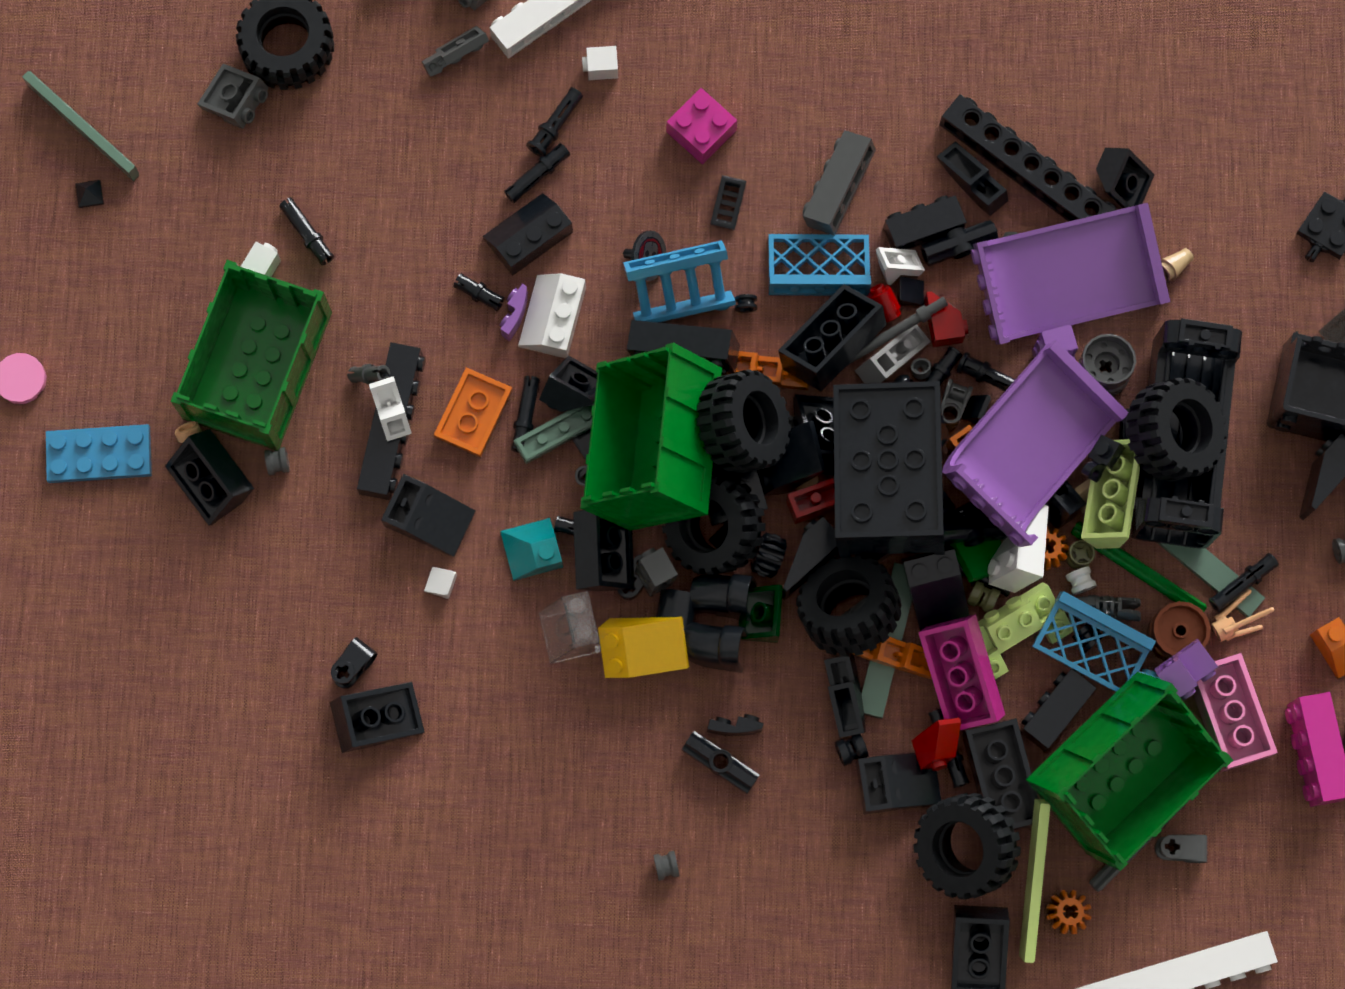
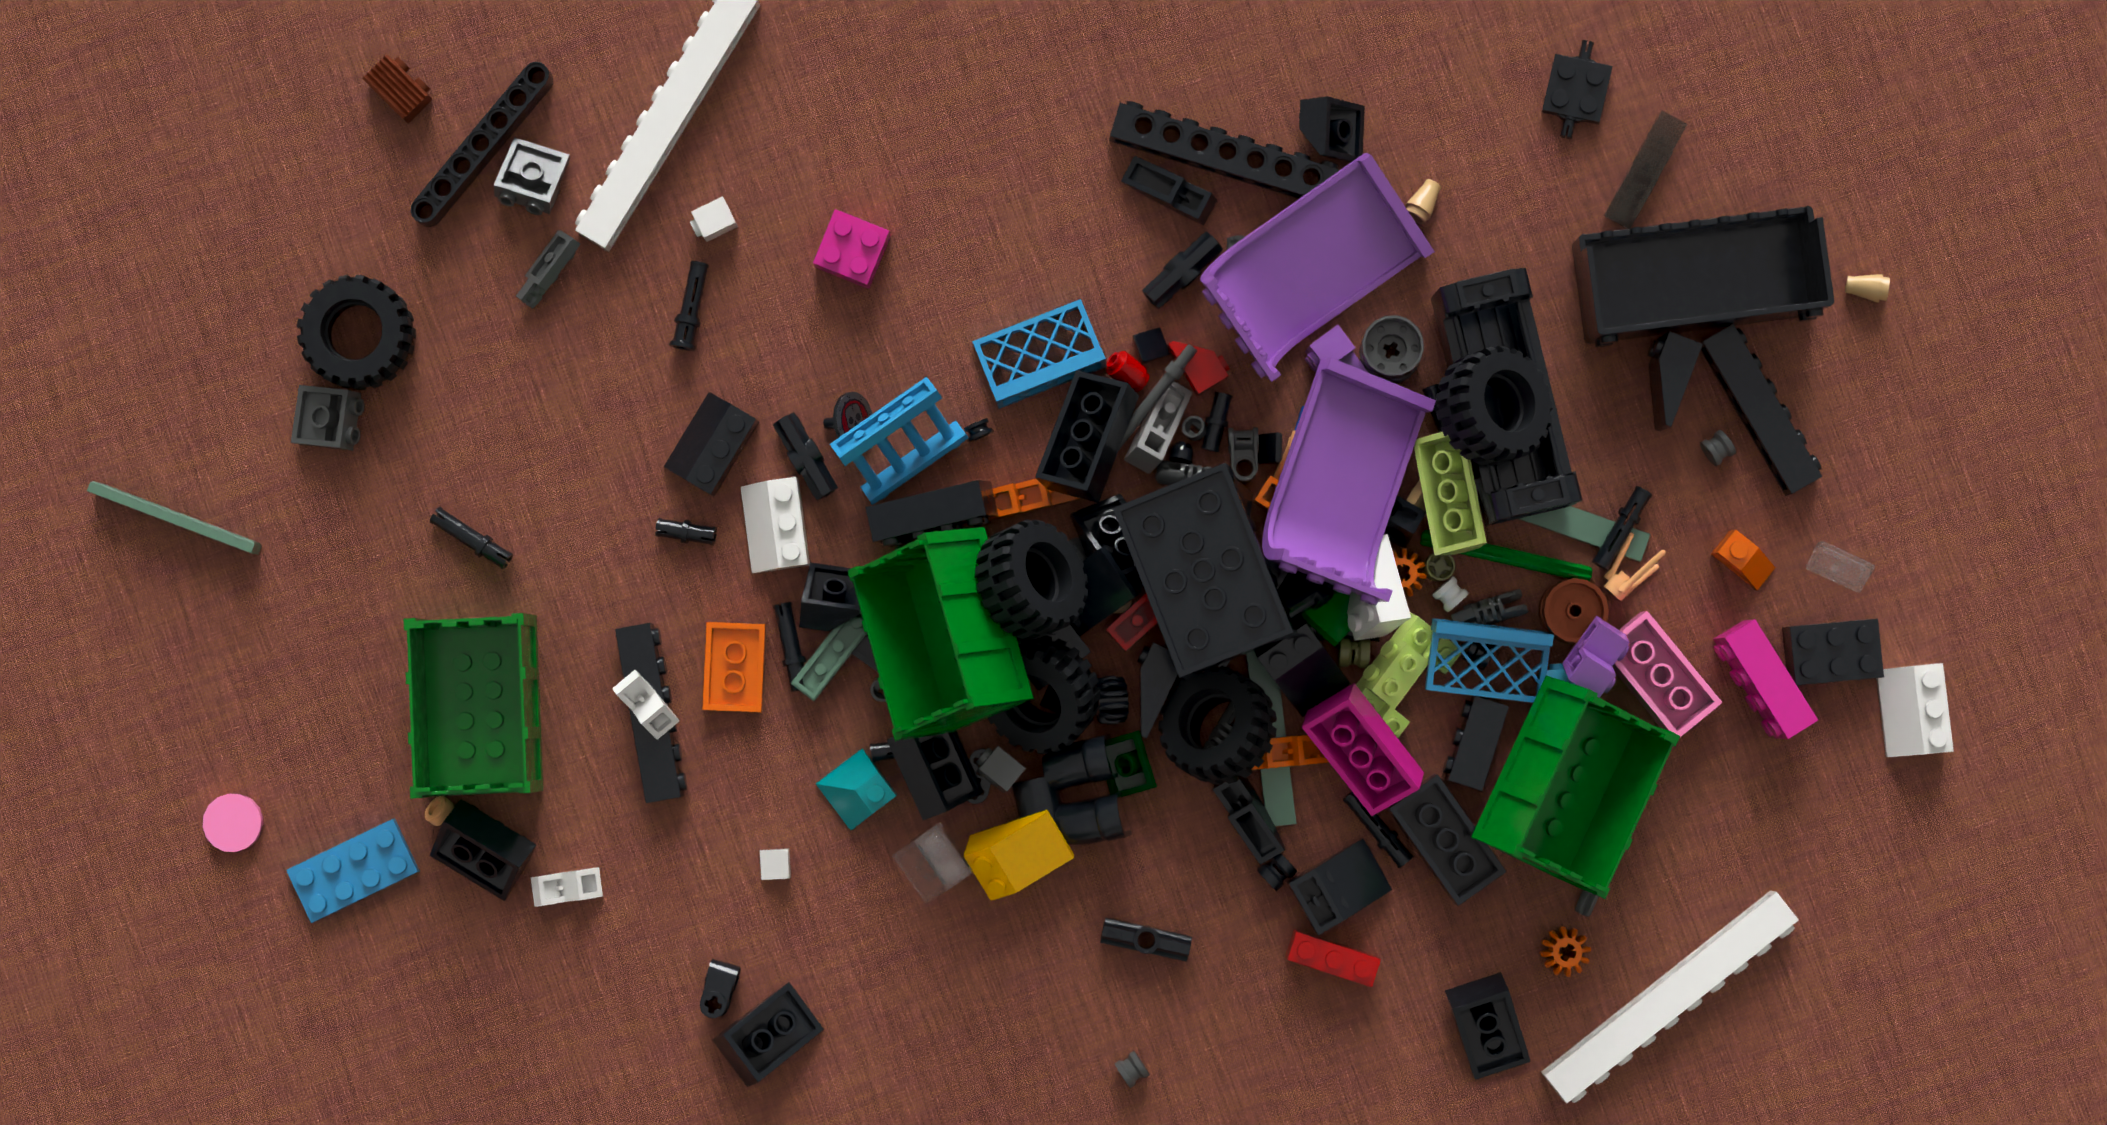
camera: 20 degrees left, 10 degrees up
(89, 193) = (217, 588): black slope -> none
(262, 259) = (437, 592): white brick -> none
(264, 534) = (566, 886): none -> white slope
(277, 461) = (547, 804): dark grey wheel -> none
(368, 373) = (605, 672): dark grey pin -> none
(427, 515) = (733, 800): black slope -> none
(517, 306) = (733, 529): medium lavender slope -> none
(537, 172) = (696, 367): black pin -> none
(599, 270) = (805, 456): none -> black piece
(734, 182) = (909, 298): black slope -> none
(745, 726) = (1156, 891): black slope -> none
(839, 182) = (1026, 254): dark grey brick -> none
(870, 839) = (1332, 958): none -> red brick
(898, 262) = (1127, 320): white slope -> none
(924, 223) = (1136, 263): black brick -> none
(936, 852) = (1418, 957): black tyre -> none
(937, 744) = (1366, 835): red slope -> none
(983, 372) = (1263, 406): black pin -> none
(1034, 880) = (1519, 936): yellowish green tile -> none
(1104, 455) = (1427, 455): black plate -> none
(1187, 848) = (1663, 836): dark grey piece -> none

